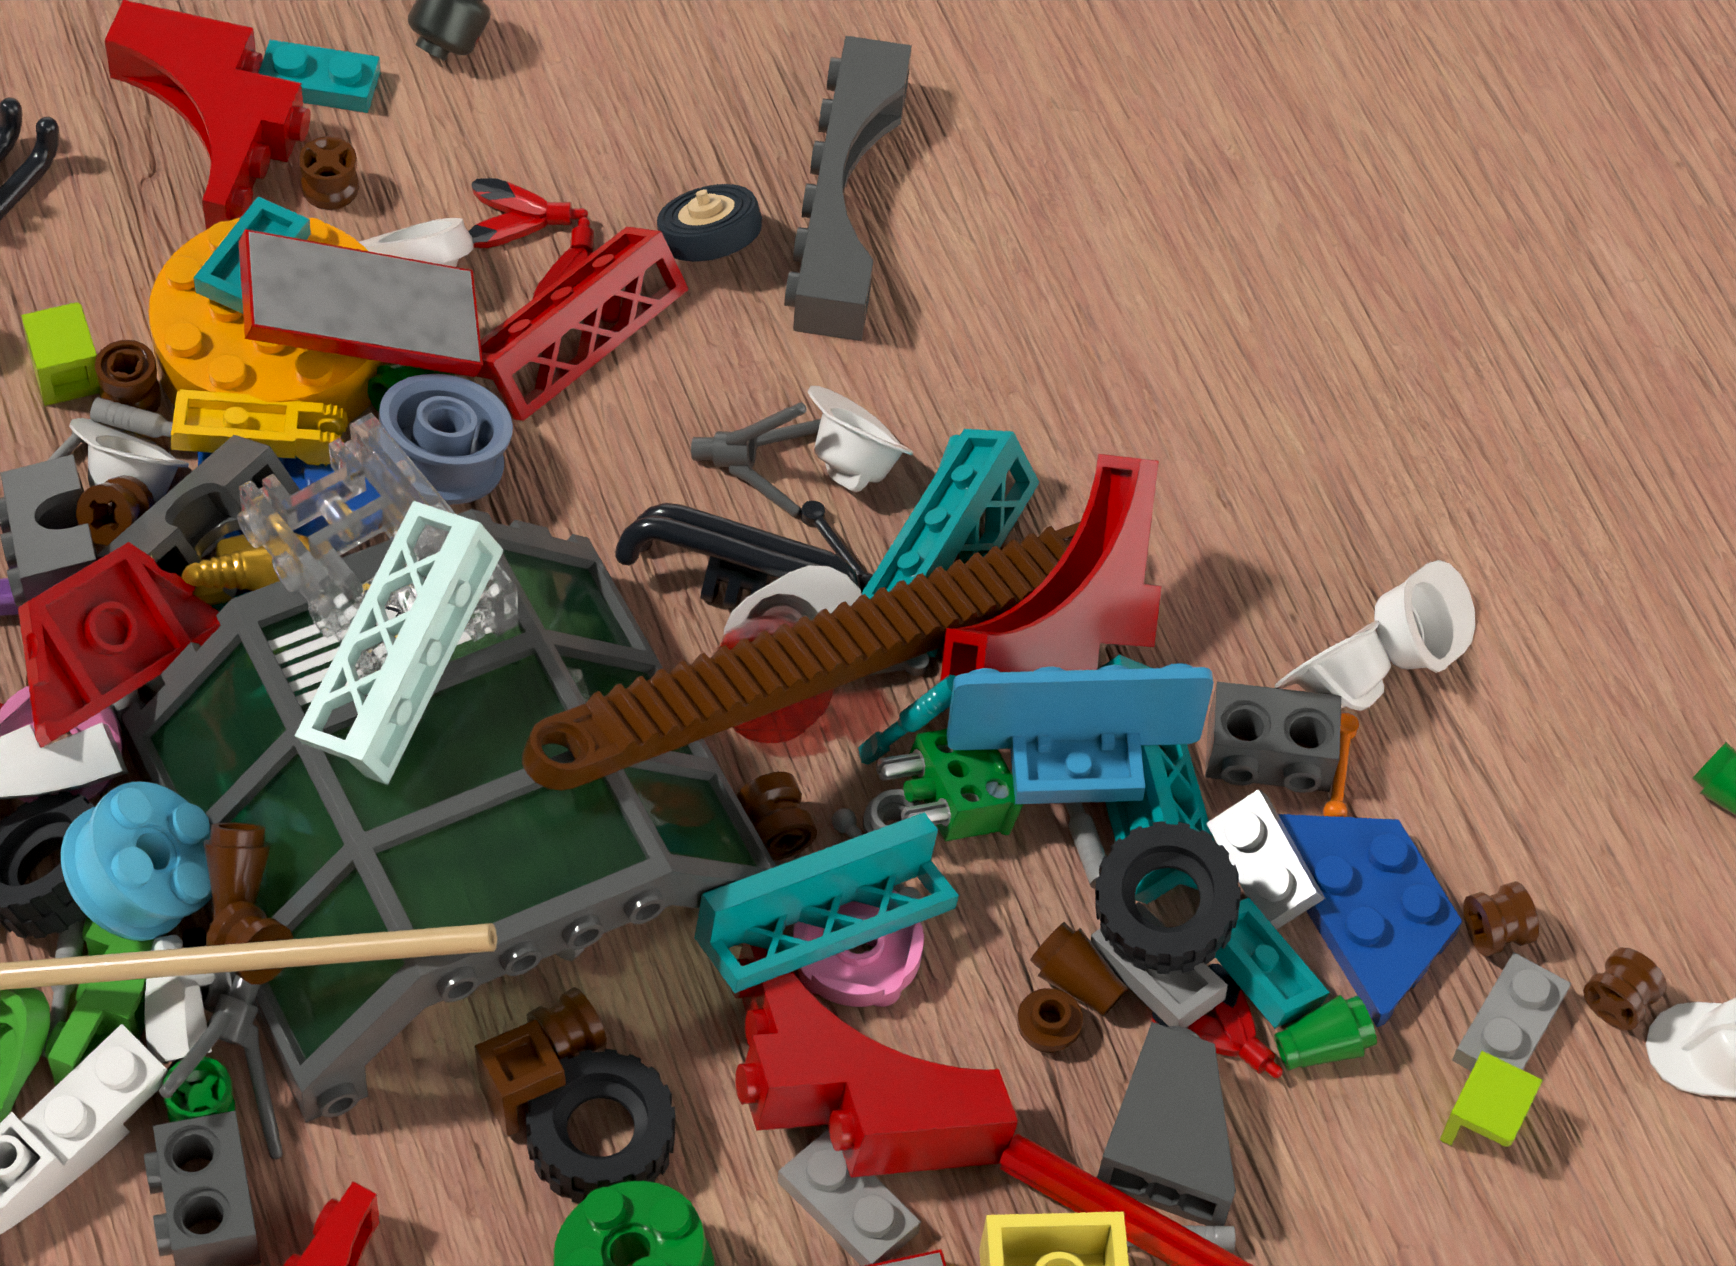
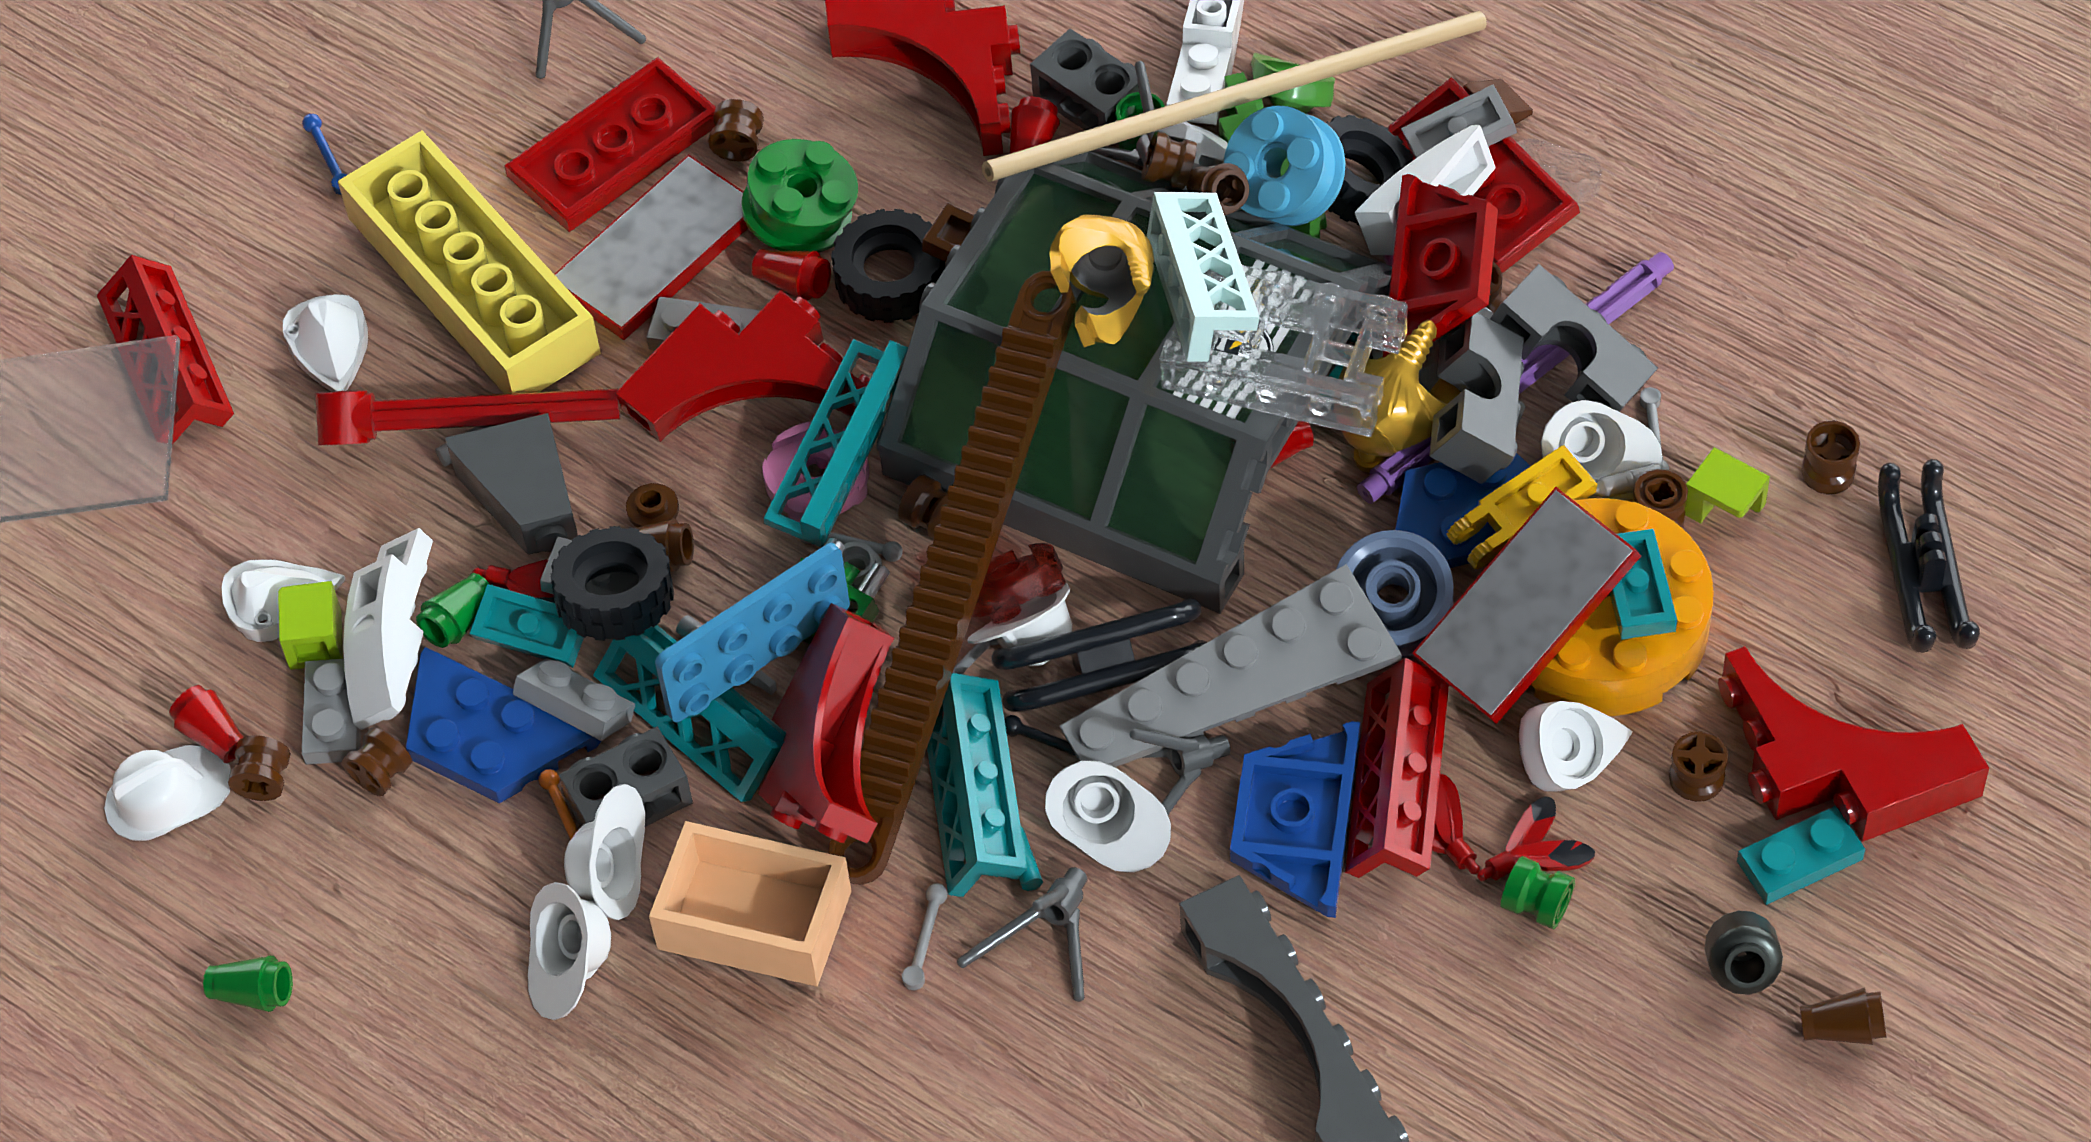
camera: 155 degrees right, 0 degrees up
(129, 502) = (1551, 387): reddish brown wheel -> none
(308, 1184) = (1032, 123): none -> red cone
(459, 716) = (1105, 261): none -> pearl gold piece
(555, 158) = (1537, 892): none -> green wheel
(614, 445) = (1274, 657): none -> light grey wing
(685, 346) = (1297, 815): none -> blue wing
(708, 1184) = (794, 272): none -> red cone
(710, 222) = (1369, 915): black wheel -> none
(910, 720) = (876, 605): teal piece -> none
(955, 405) = (1057, 907): none -> dark grey plant
(1120, 440) = (913, 975): none -> light grey hinge
(1239, 544) = (750, 903): none -> light nougat piece
(1416, 1054) = (378, 630): none -> white slope
(1504, 1191) = (253, 589): none -> white piece
(1653, 1078) = (206, 721): none -> red cone

